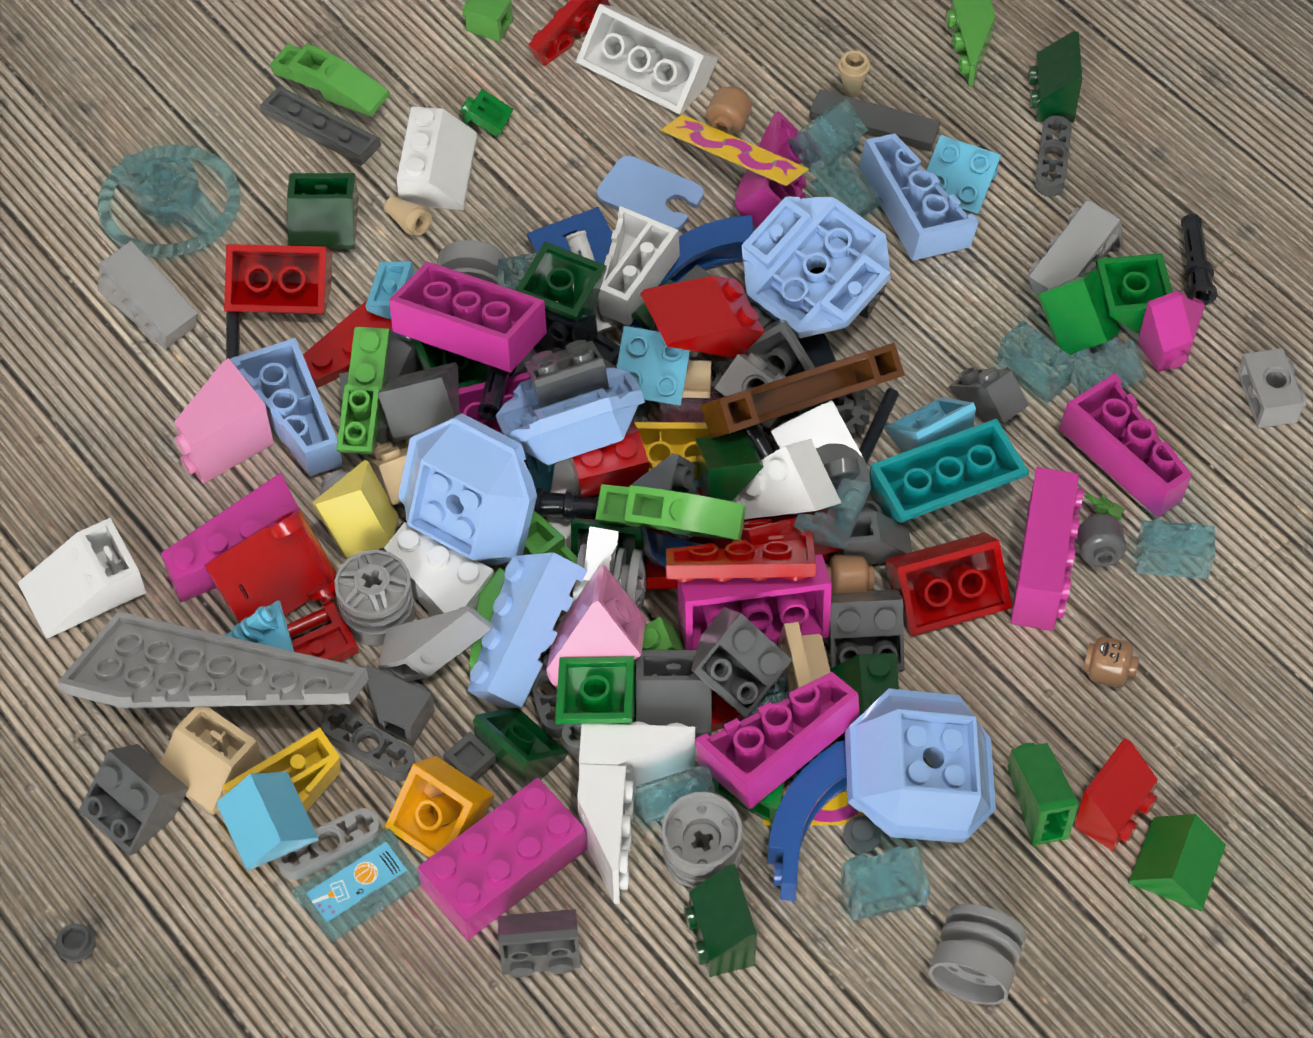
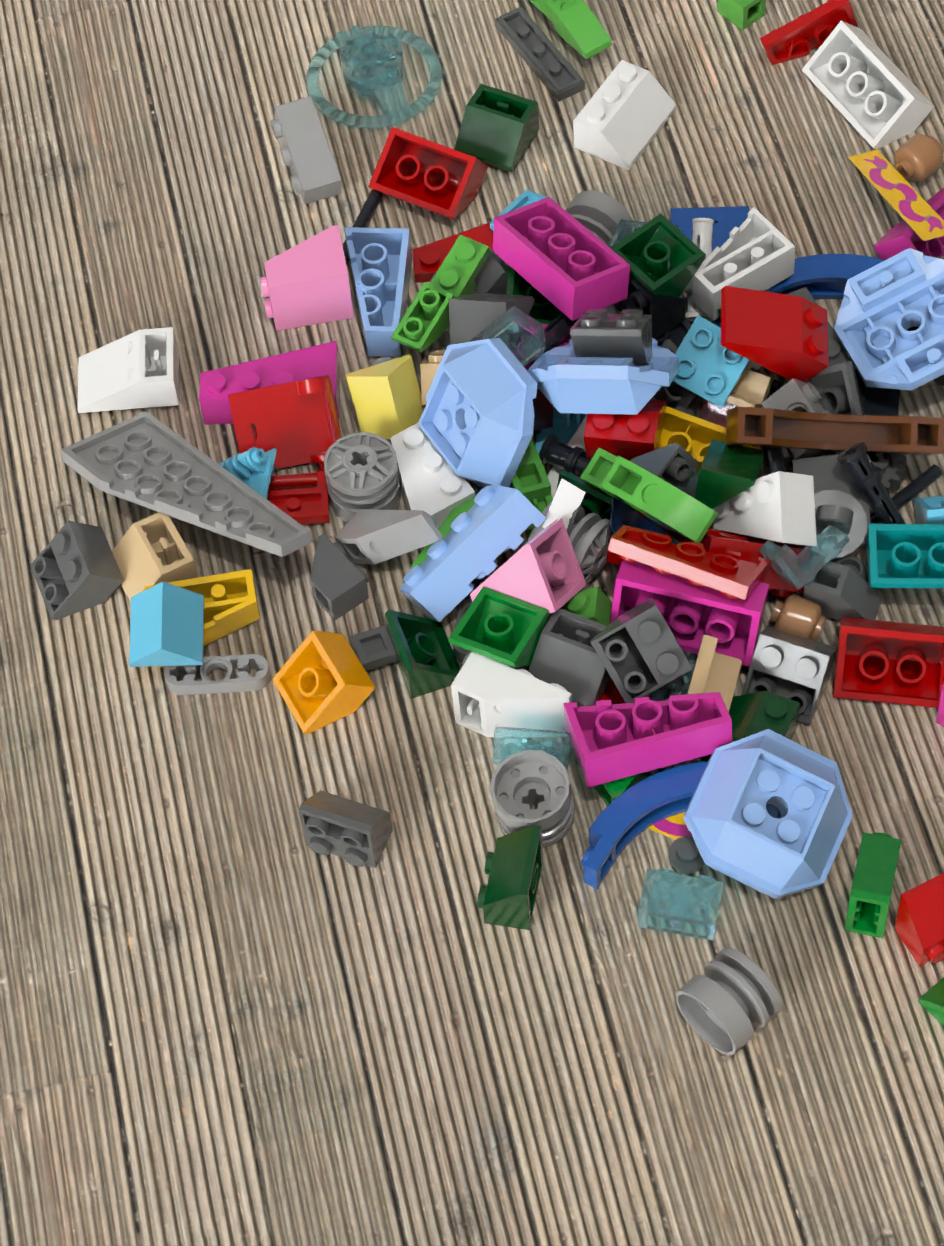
camera: 30 degrees right, 0 degrees up
(357, 883) = (223, 717): door -> none
(362, 729) = (293, 589): dark grey beam -> none
(410, 216) = (574, 159): tan cone -> none
(470, 399) = (519, 333): none -> clear light blue bracket
(486, 112) = (692, 88): green bracket -> none
(502, 858) = (355, 744): dark pink brick -> none
(607, 813) = (459, 744): white slope -> none
(648, 190) = (802, 204): light blue piece -> none
(851, 425) = (865, 478): none -> black pin

